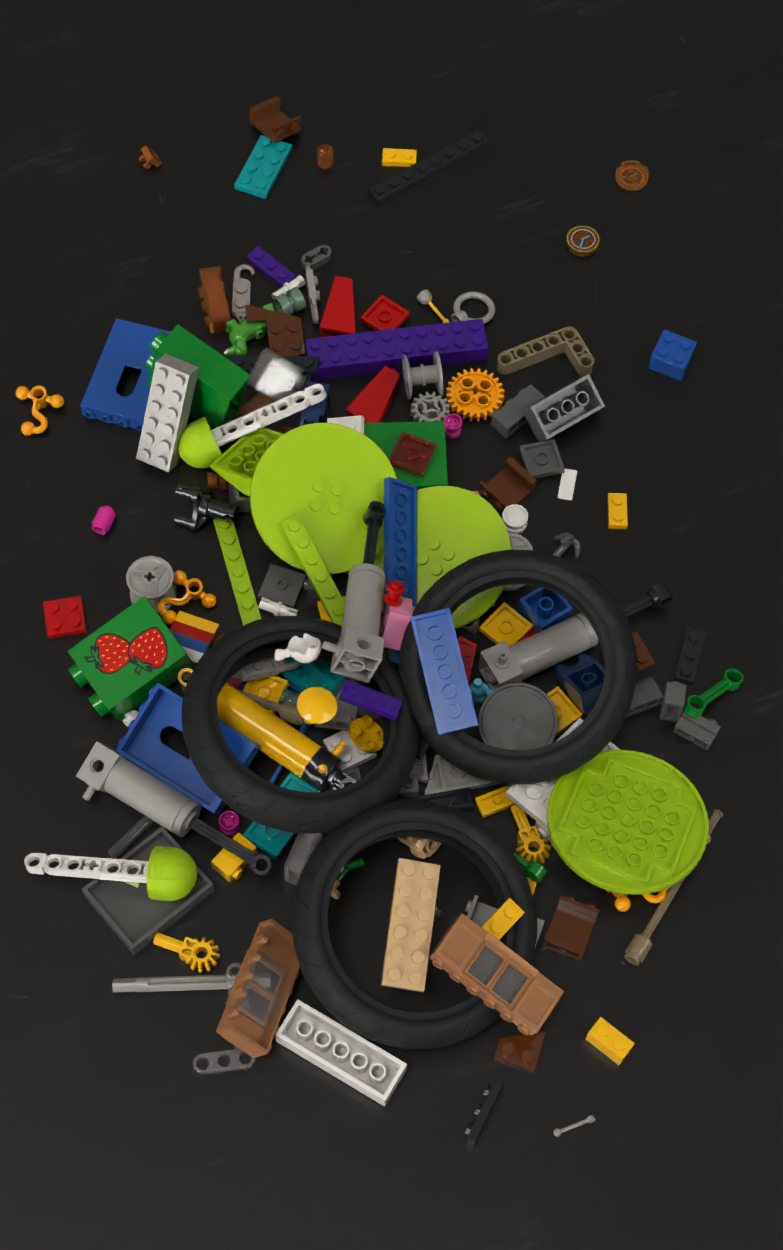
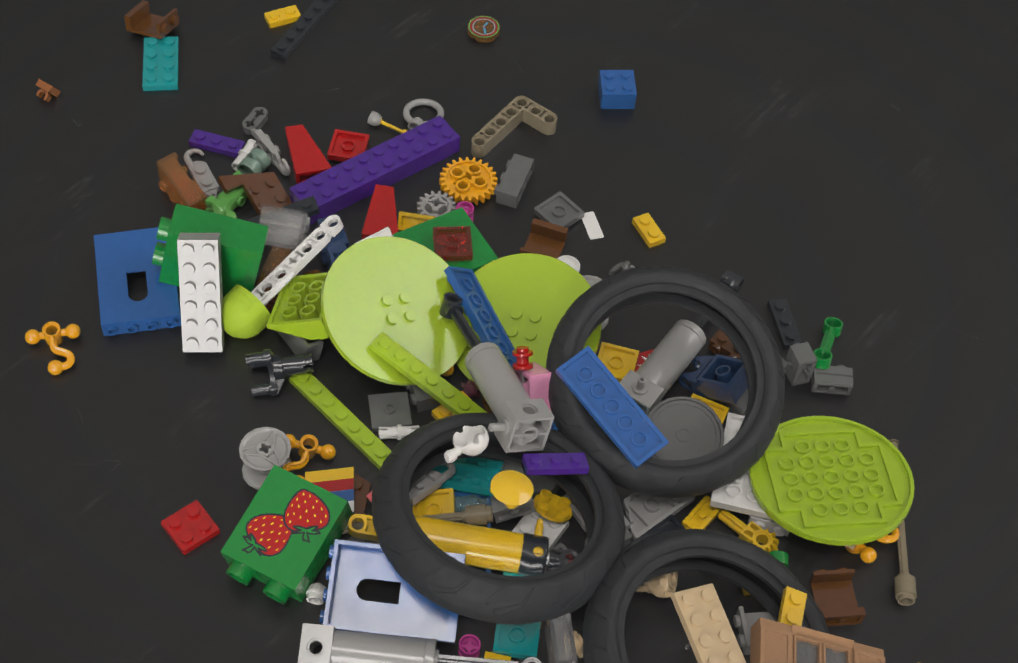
camera: 30 degrees left, 10 degrees down
(103, 520) = (181, 420): dark pink brick -> none
(213, 483) = (274, 341): clear orange wheel -> none
(325, 156) = (215, 35): clear orange wheel -> none
(398, 413) = (409, 219): none -> yellow plate
(422, 375) = (425, 174): light grey piece -> none
(544, 608) = (642, 331): blue brick -> none
(563, 408) = (554, 162): dark grey brick -> none

